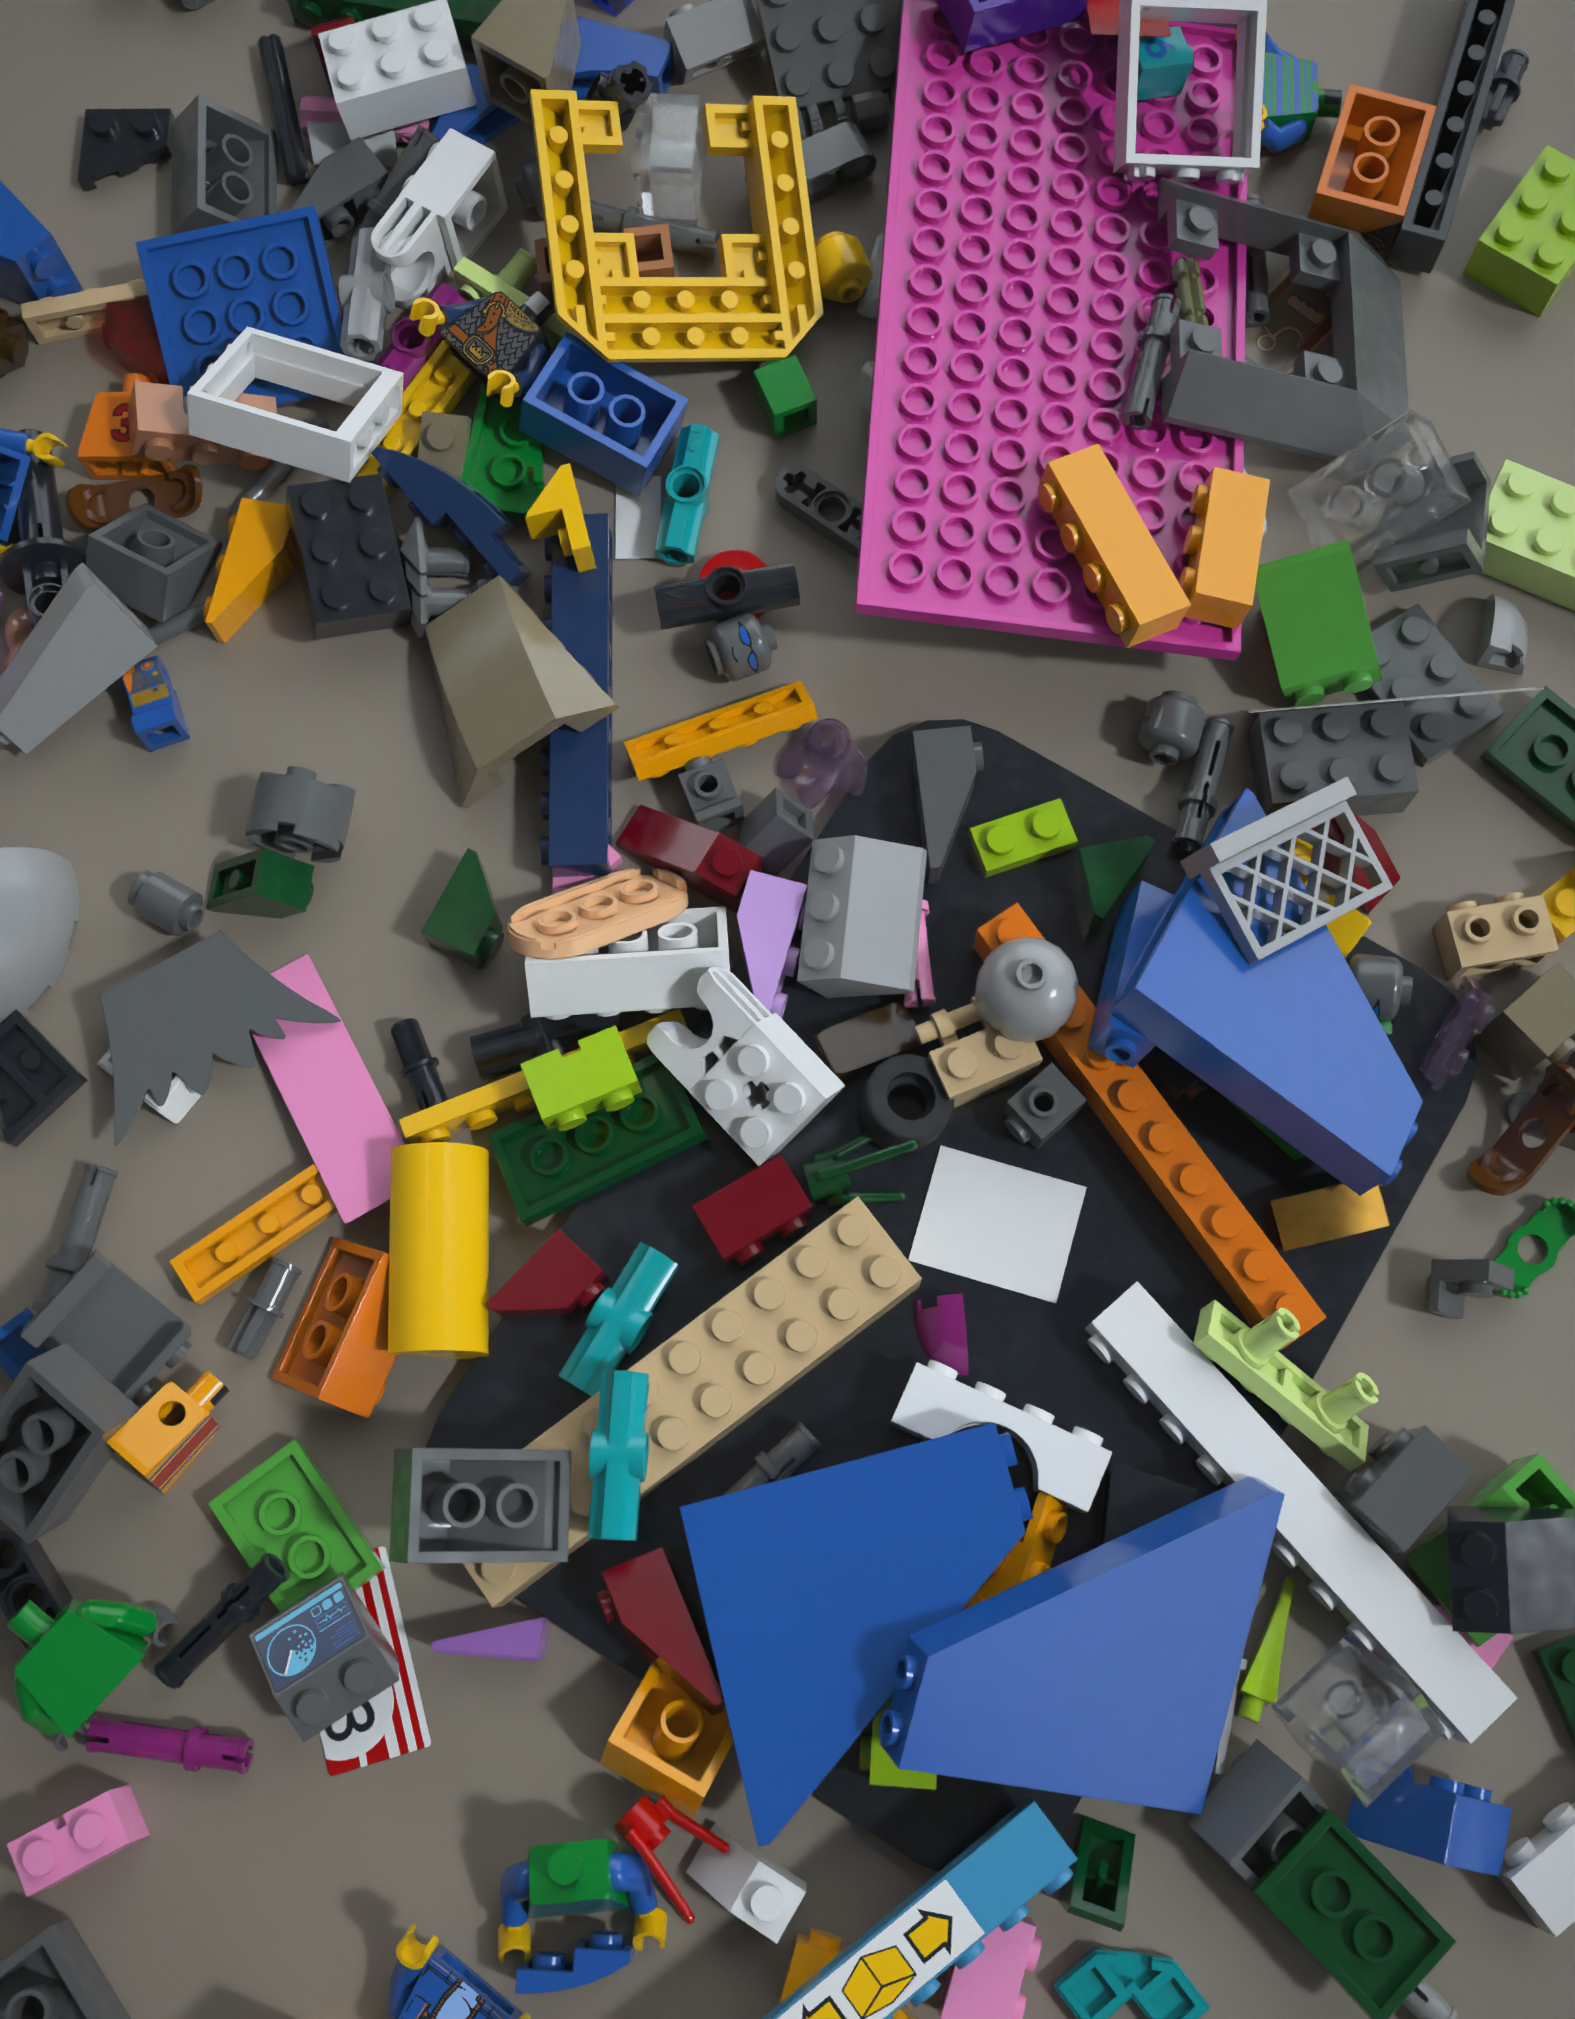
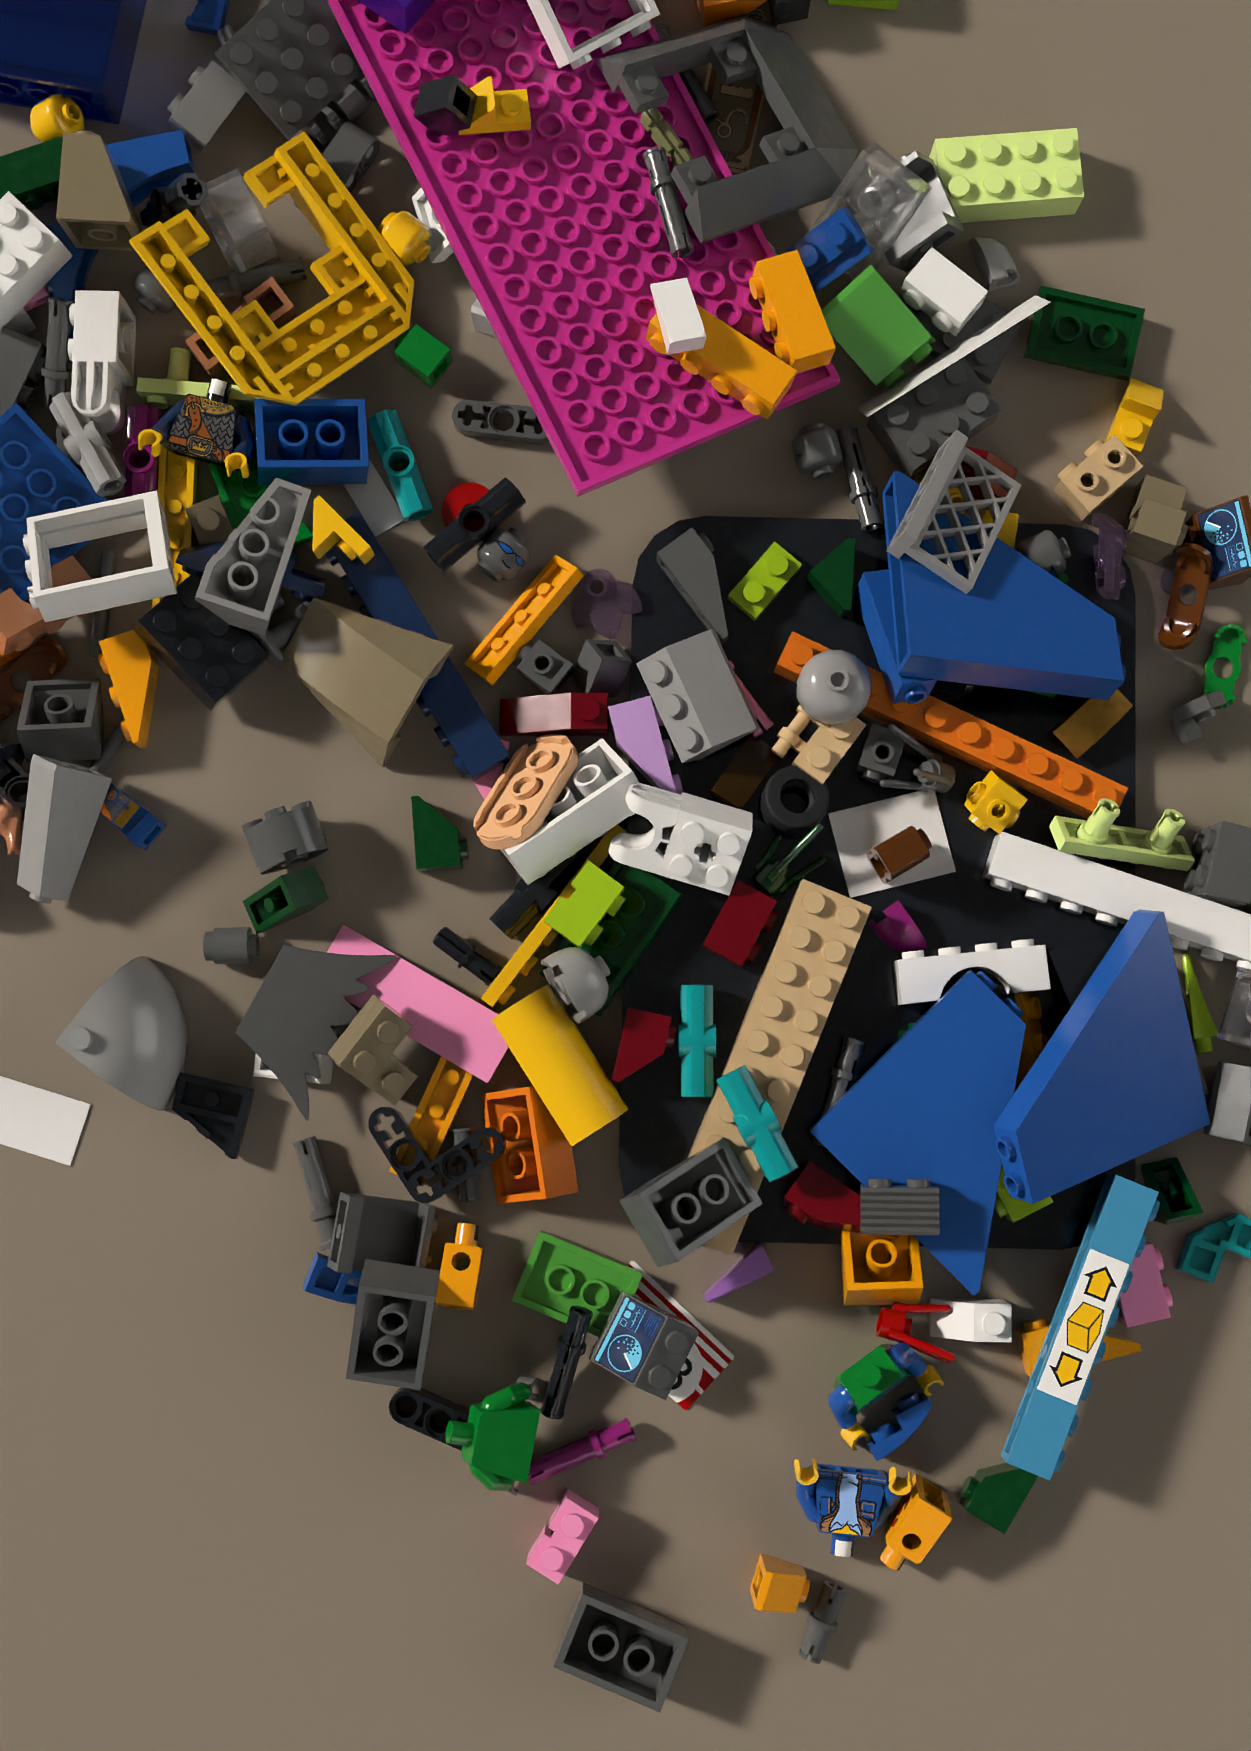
camera: 35 degrees left, 10 degrees up
(211, 1277) = (423, 1164): none -> black beam
(229, 1107) = (368, 1049): none -> dark tan brick
(447, 498) = (249, 568): none -> light grey wedge
(521, 1162) = (578, 980): none -> light grey cylinder
(727, 1670) = (899, 1208): none -> dark grey brick
(959, 133) = (445, 105): none -> black brick
(995, 1234) = (899, 853): none -> reddish brown brick
(1008, 172) = (498, 110): none -> yellow slope
(1084, 472) = (678, 316): none -> white slope
(1090, 1165) = (930, 774): none -> dark grey plant
(1151, 1226) = (994, 803): none -> yellow brick
(1314, 512) = (832, 248): none -> blue plate
(1421, 628) = (942, 292): none -> white brick

